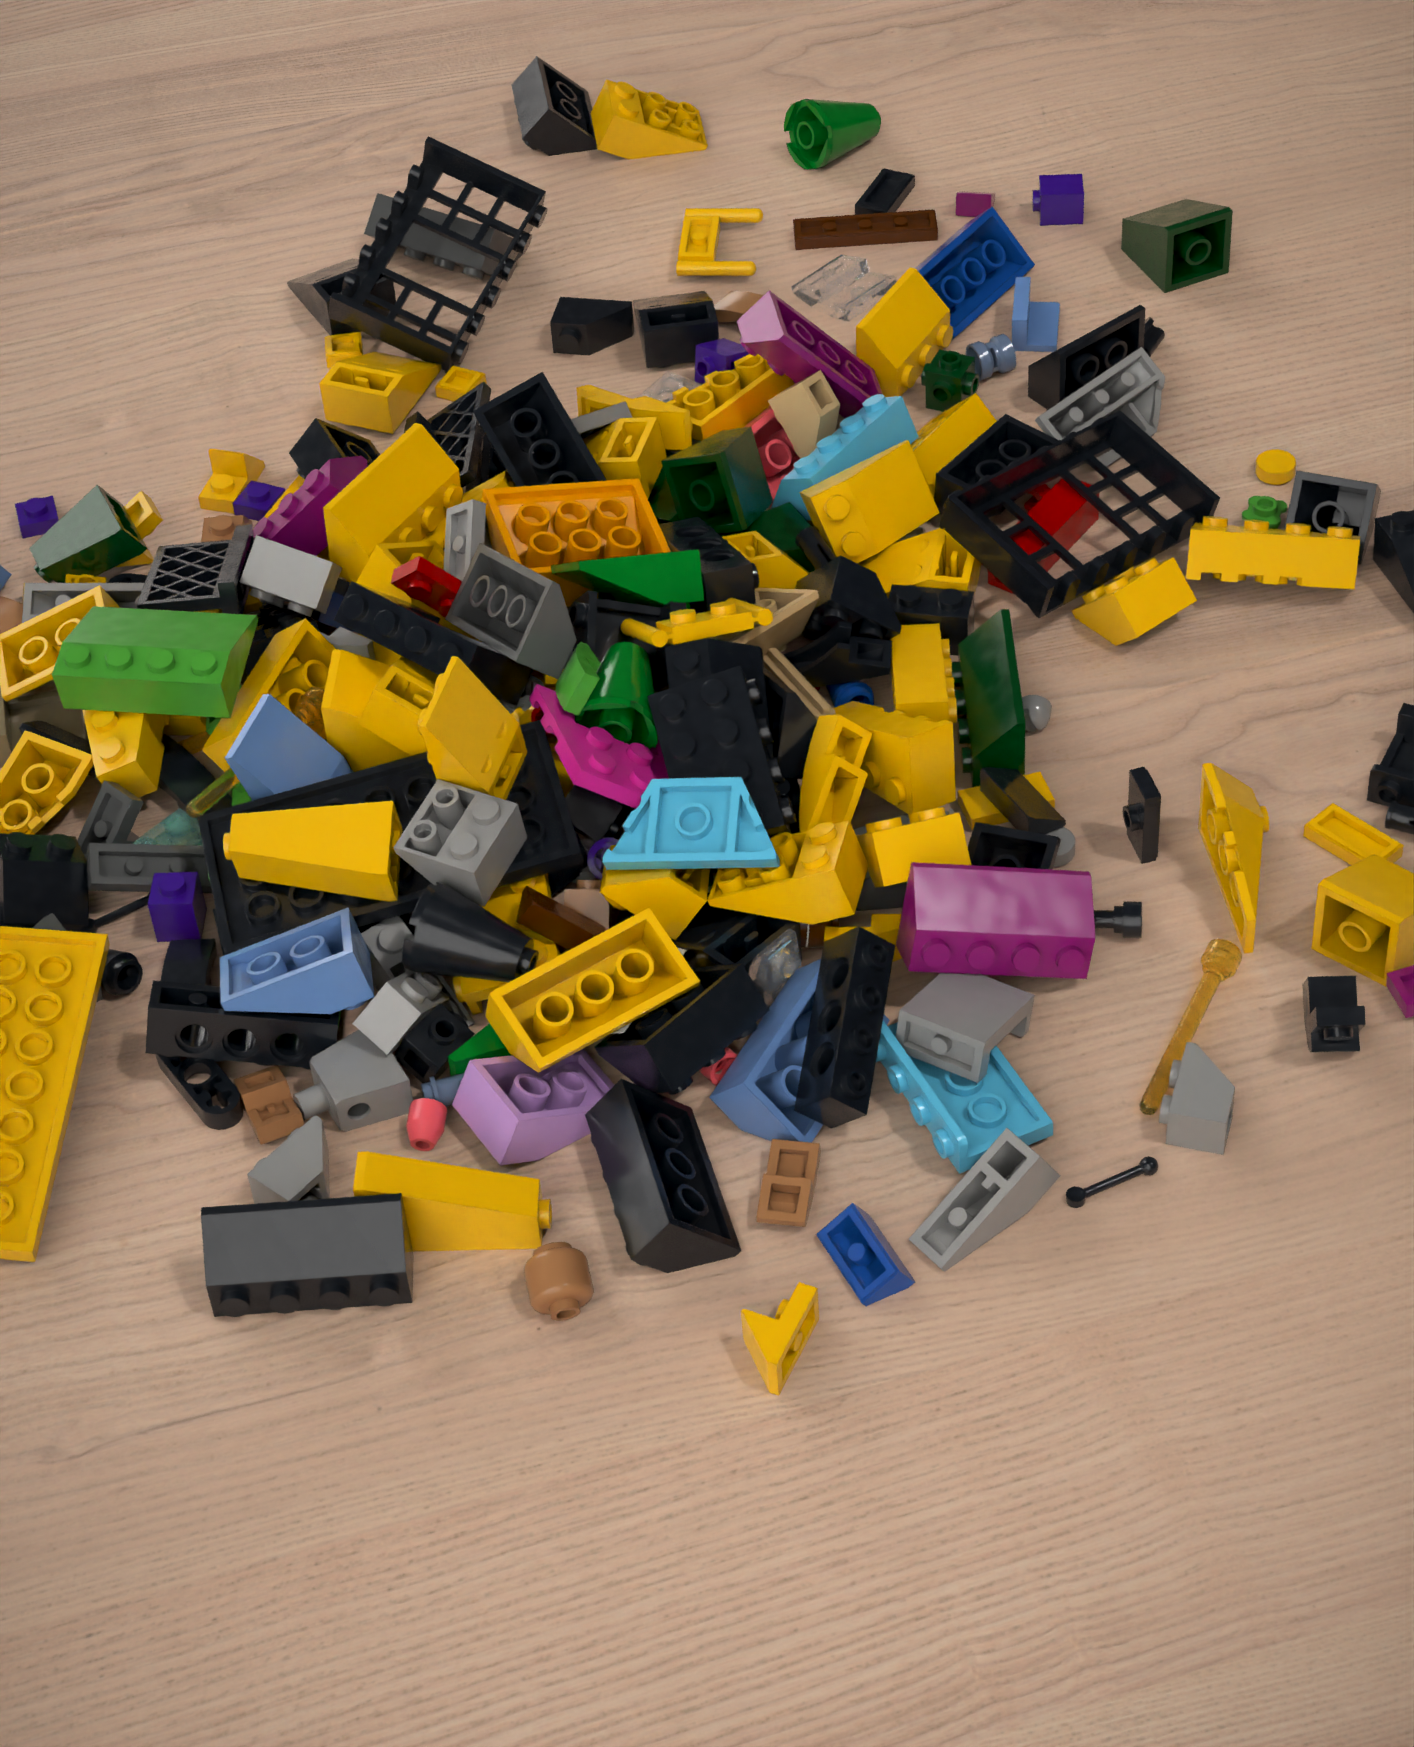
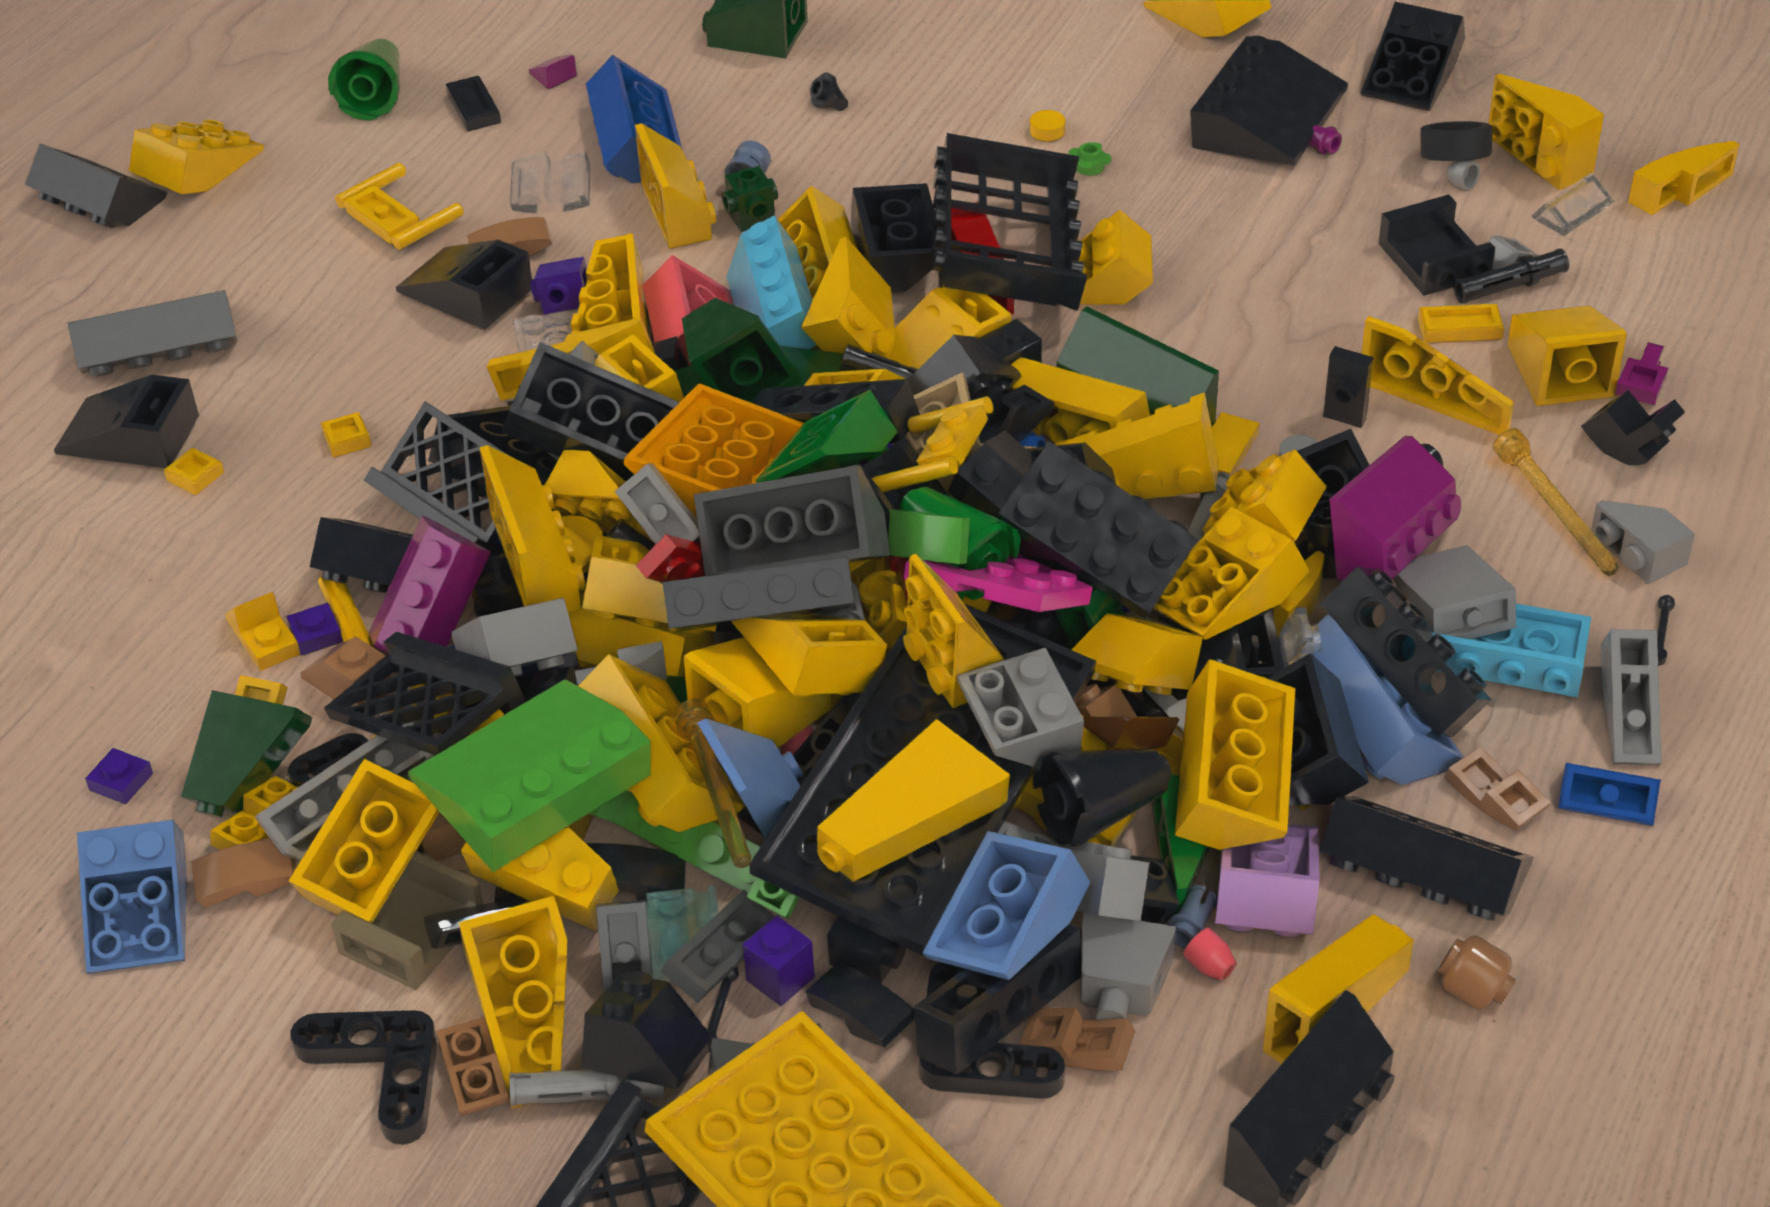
camera: 50 degrees left, 0 degrees up
(295, 1168) = (1191, 1063): light grey slope -> none
(375, 389) = (291, 478): yellow slope -> none
(390, 232) = (218, 418): black window -> none
(590, 325) = (391, 324): black slope -> none
(693, 827) = (1153, 583): medium azure wing -> none
(780, 1341) = (1659, 884): yellow slope -> none
(801, 349) = (664, 229): magenta slope -> none
(807, 412) = (713, 268): tan slope -> none
(833, 772) = (1138, 475): yellow slope -> none
(865, 229) = (496, 135): reddish brown tile -> none
(1019, 800) = (1251, 438): black slope -> none
(1033, 322) = (725, 123): medium blue panel -> none
(1059, 199) = (624, 32): dark purple brick -> none
(1085, 358) = (826, 126): black slope -> none
(1128, 387) = (892, 146): light grey wedge -> none
(1273, 554) = (1155, 176): yellow wedge -> none
(1334, 502) = (1148, 131): black slope -> none

